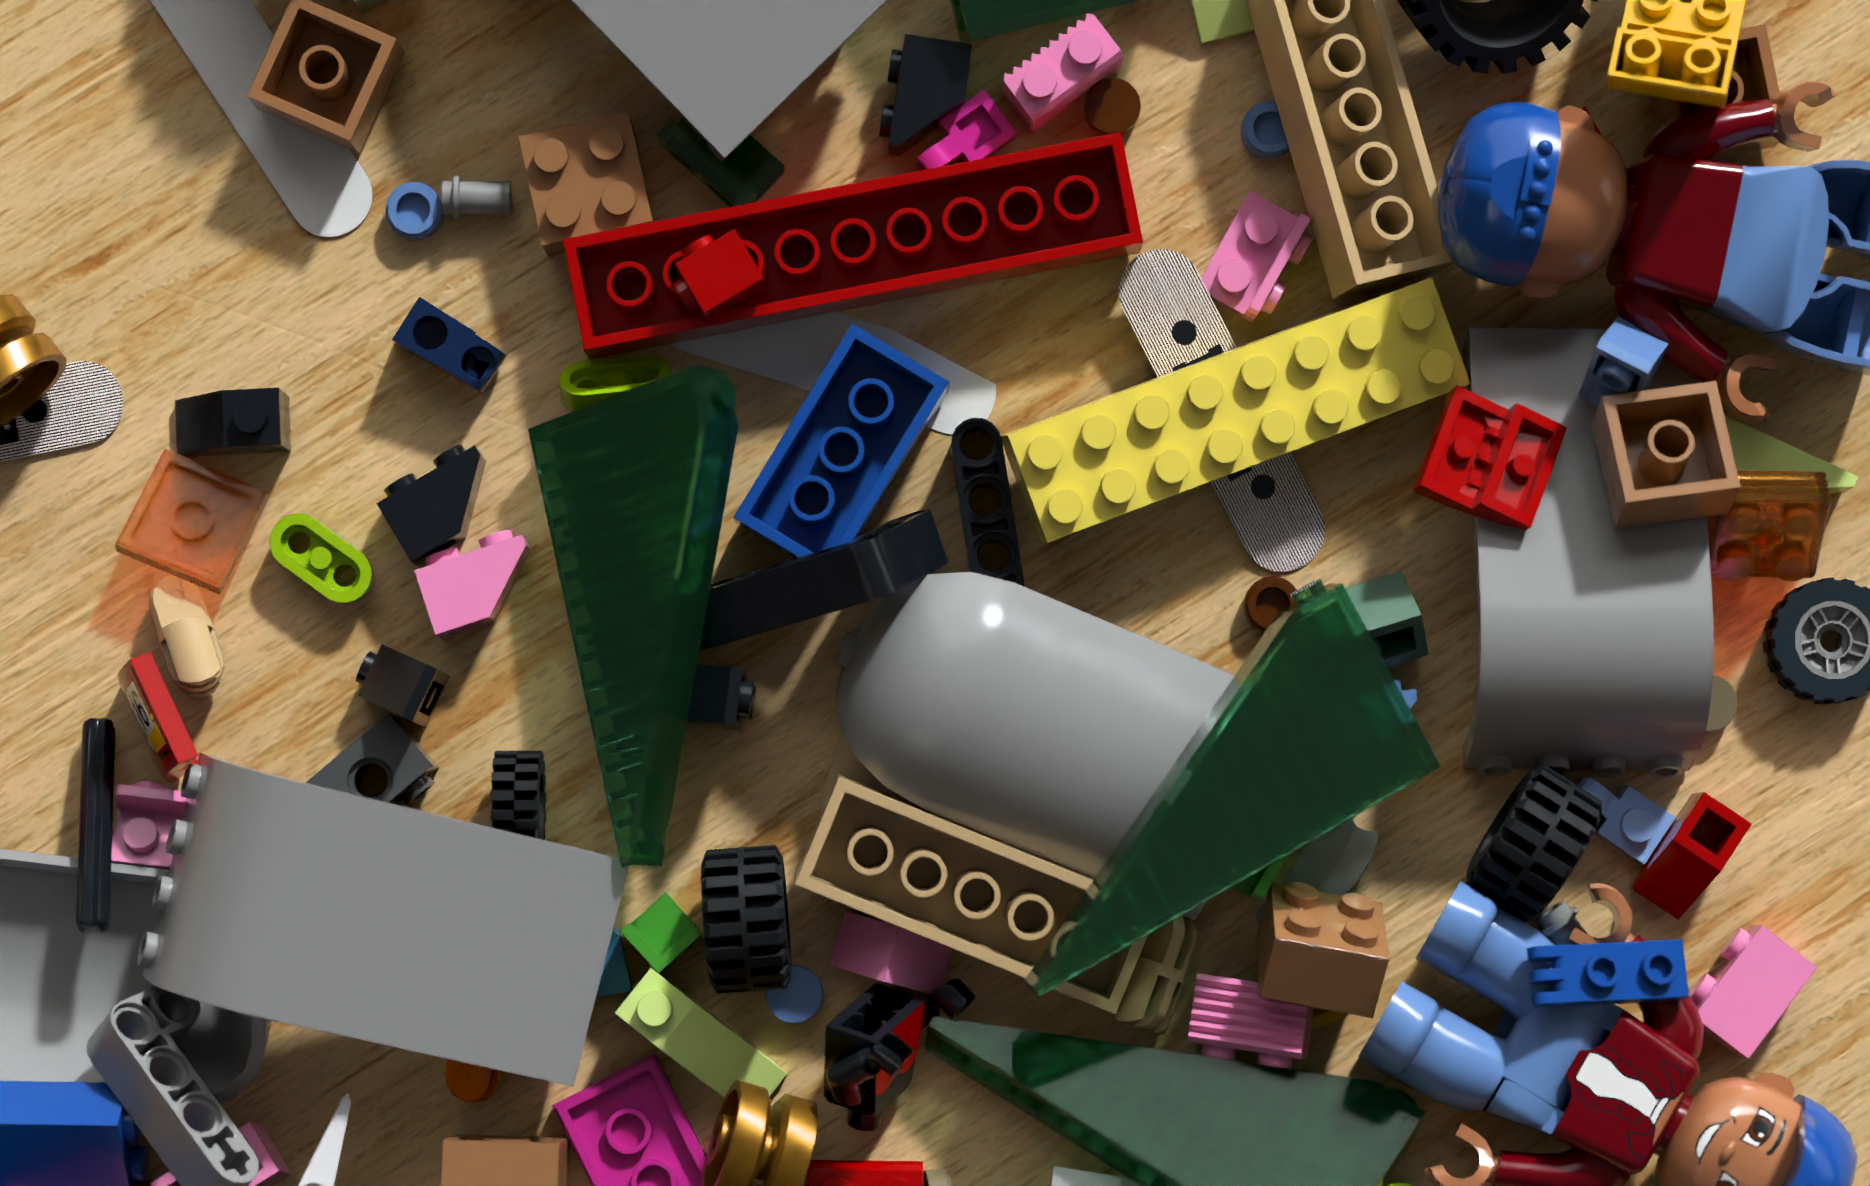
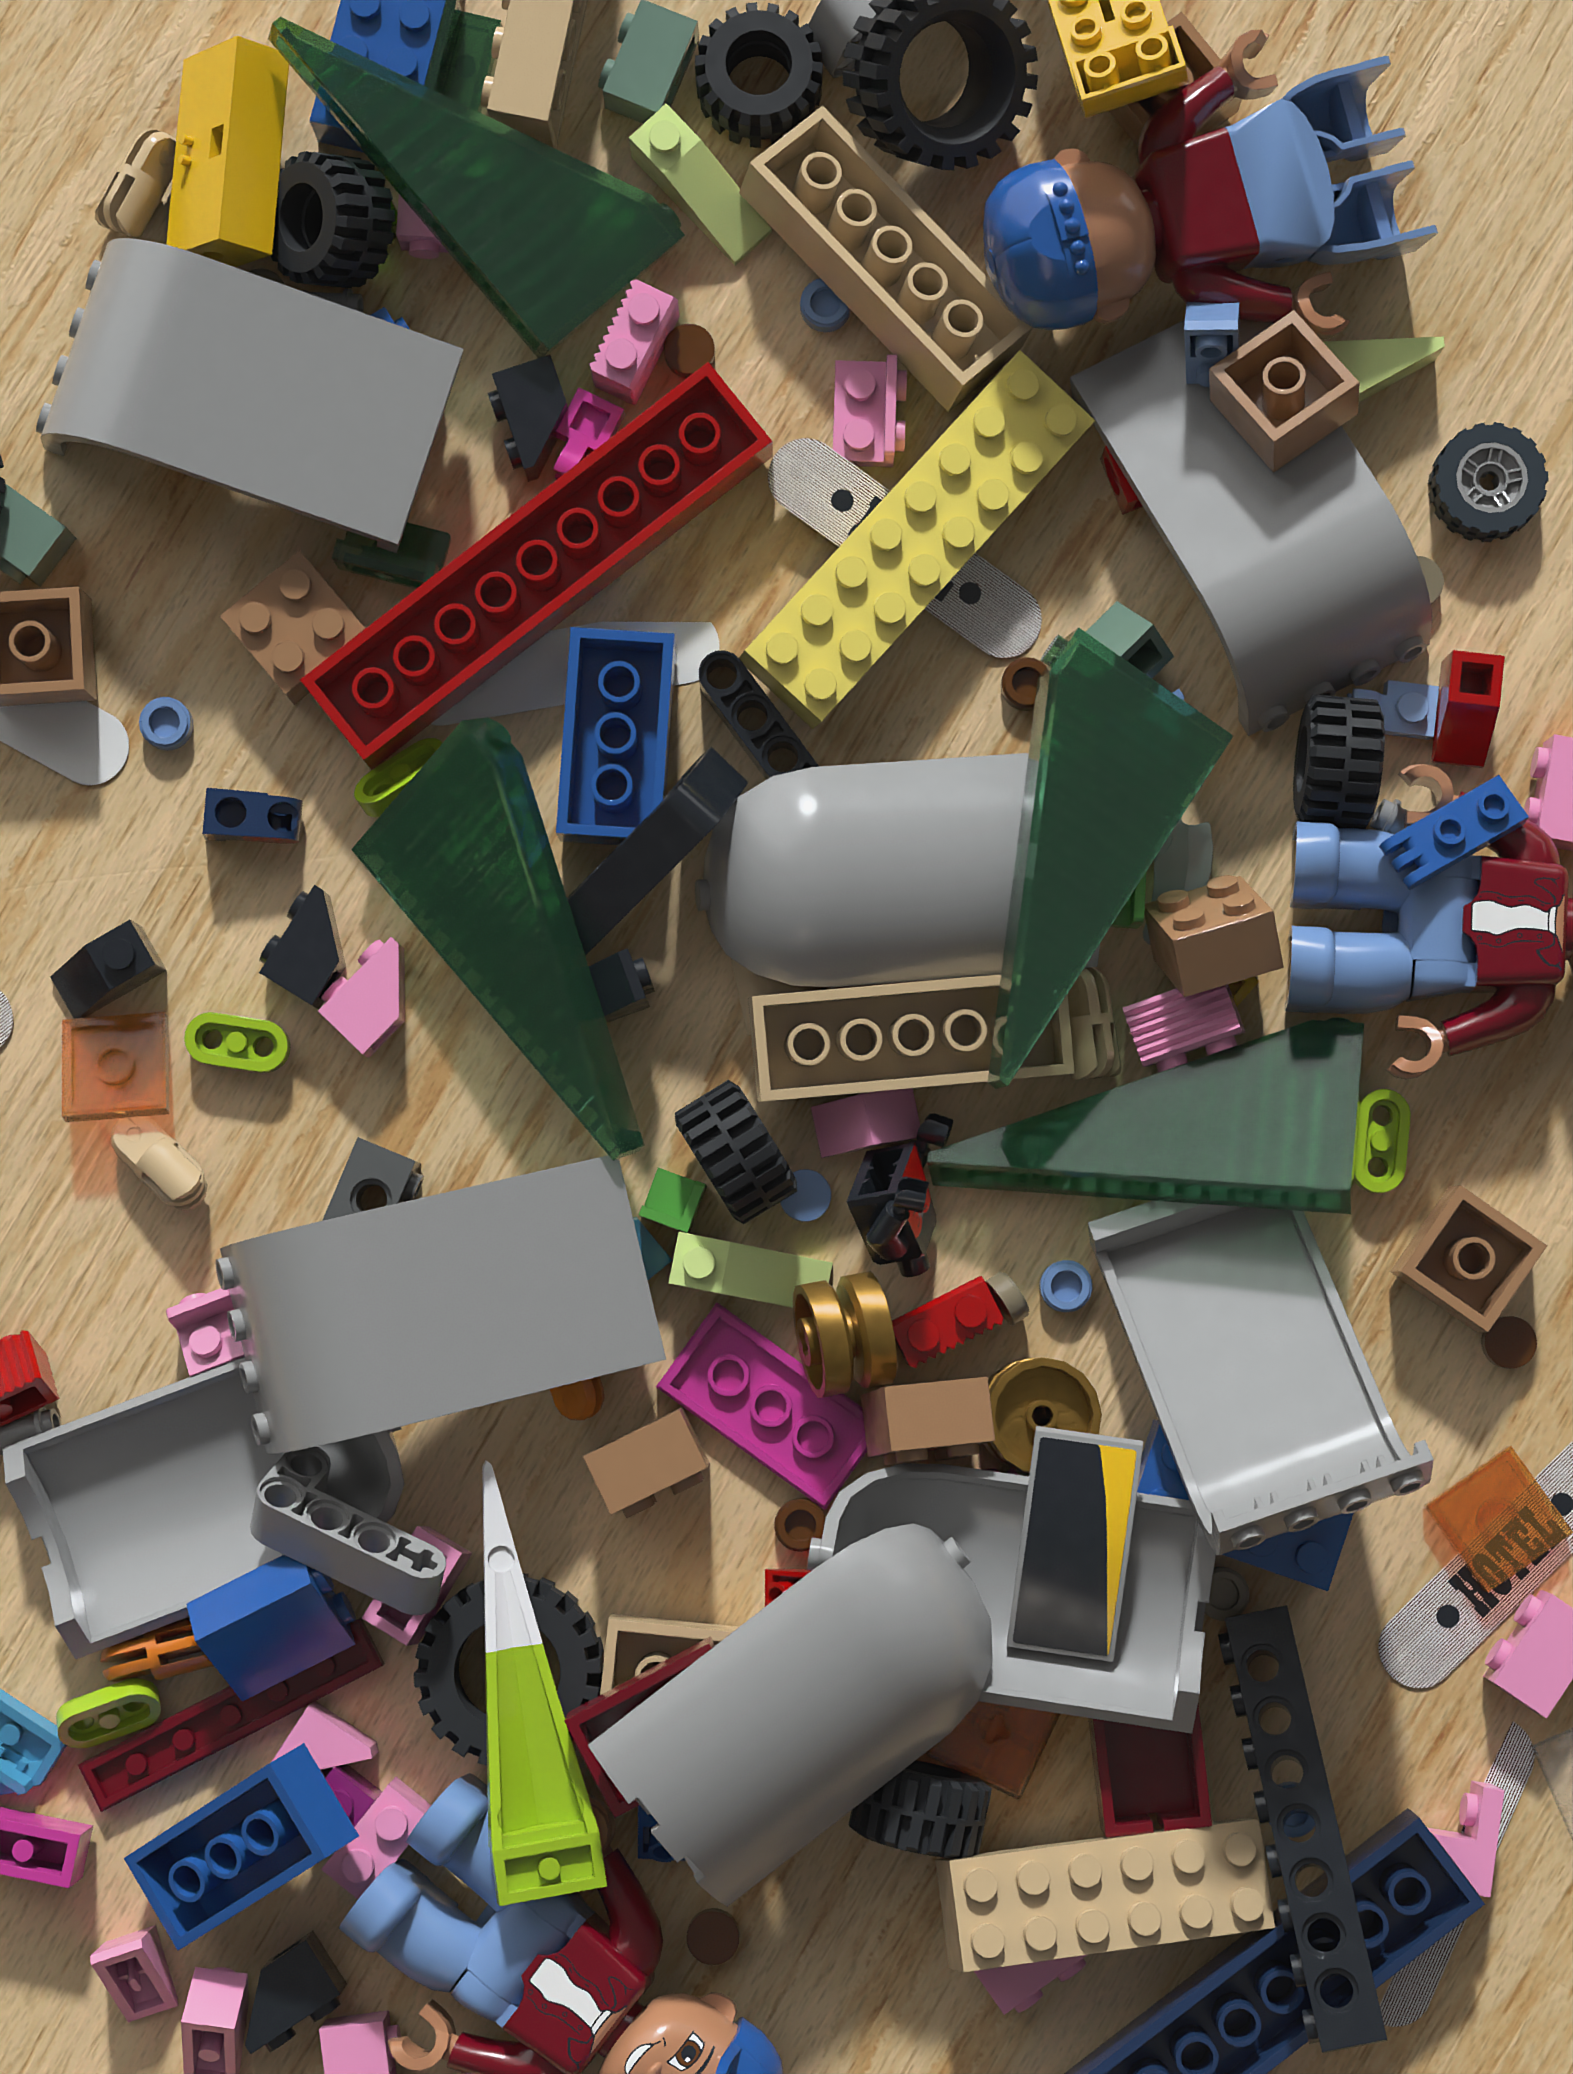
camera: 25 degrees left, 0 degrees up
(95, 826) = (165, 1352): black axle -> none
(157, 716) = (169, 1236): red slope -> none
(401, 684) = (355, 1109): black slope -> none
(475, 198) = (211, 686): light grey pin -> none
(519, 792) = (496, 1145): black tyre -> none
(717, 274) = (441, 641): red brick -> none
(1489, 459) = (1143, 470): red slope -> none
(1771, 526) = (1397, 411): clear orange brick -> none

